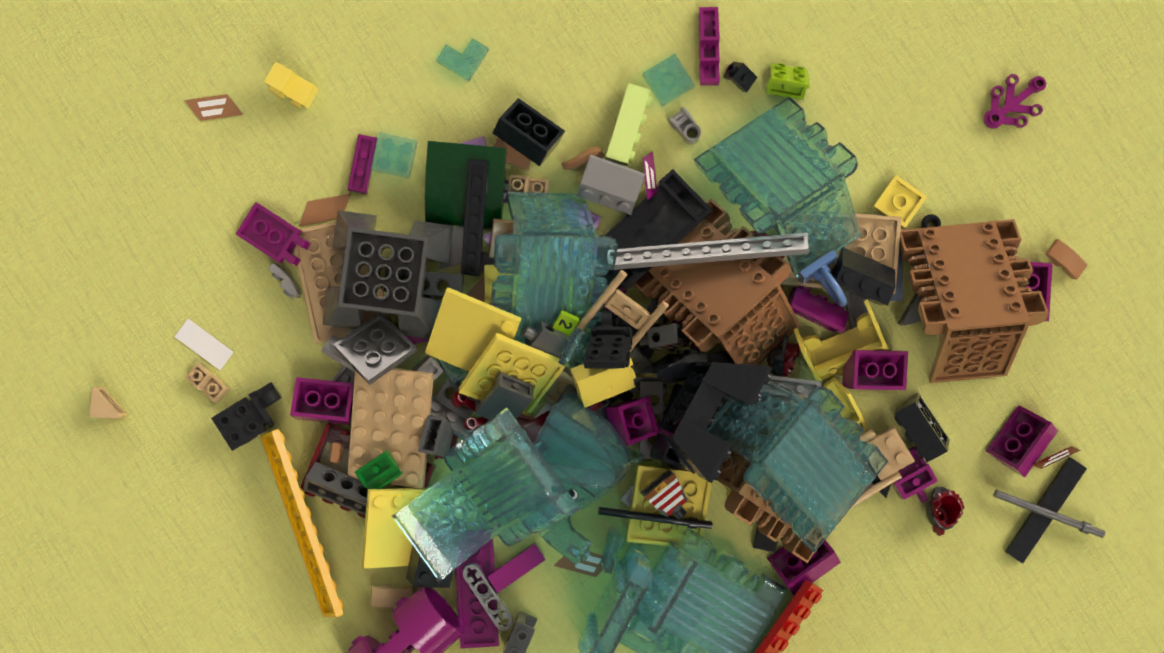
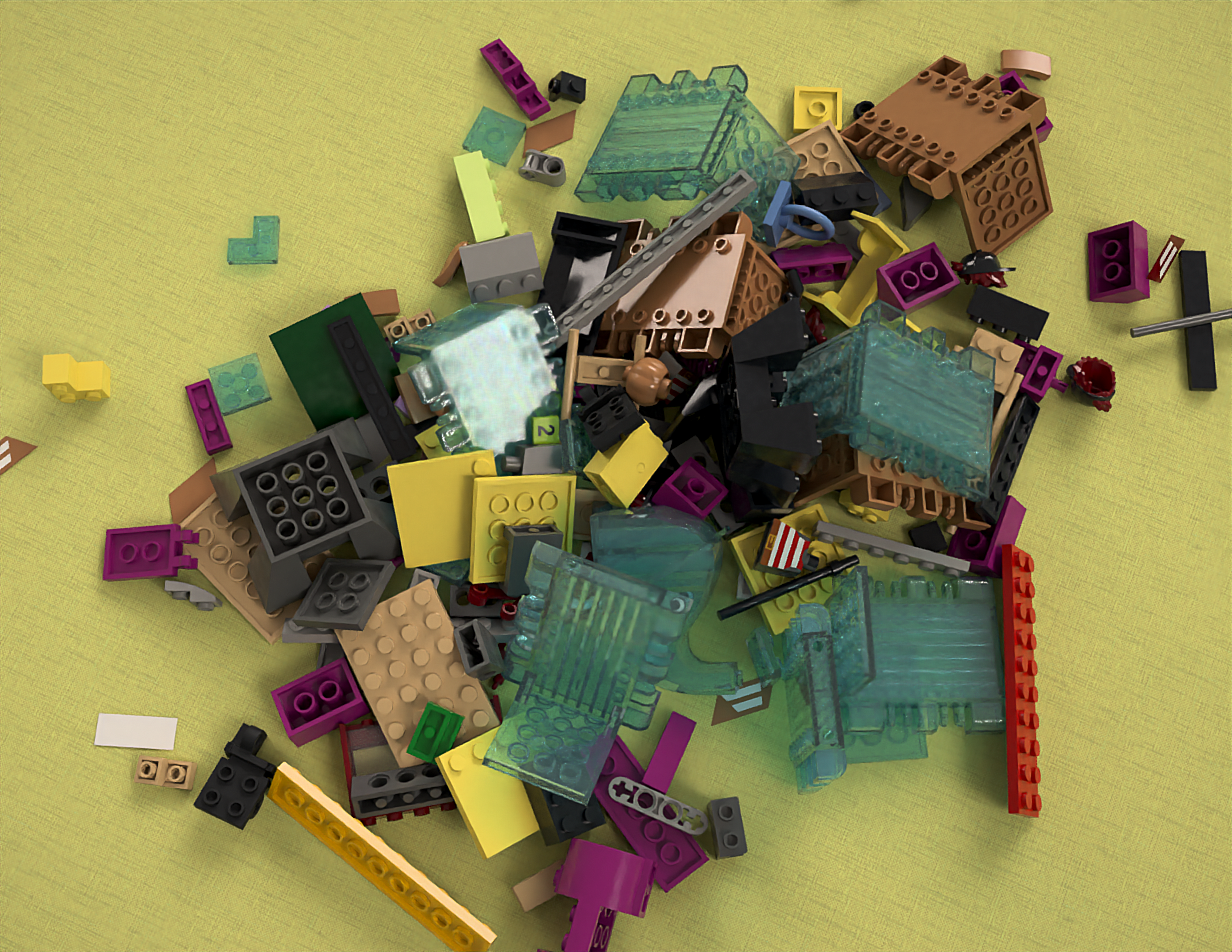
camera: 30 degrees left, 15 degrees down
(104, 405) = (50, 880): tan slope -> none
(337, 452) = (371, 750): medium nougat tile -> none
(528, 132) = (375, 268): black brick -> none
(649, 337) = (647, 381): none -> medium nougat plant
(650, 176) = (539, 238): magenta sticker -> none
(707, 100) = (550, 132): none -> medium nougat sticker
(728, 528) = (882, 547): none -> light grey plate
(787, 81) = (620, 65): lime bracket -> none
(791, 327) = (796, 287): none -> black arm
(854, 523) = (1008, 457): none -> black tile
(928, 390) = (982, 269): none -> hair

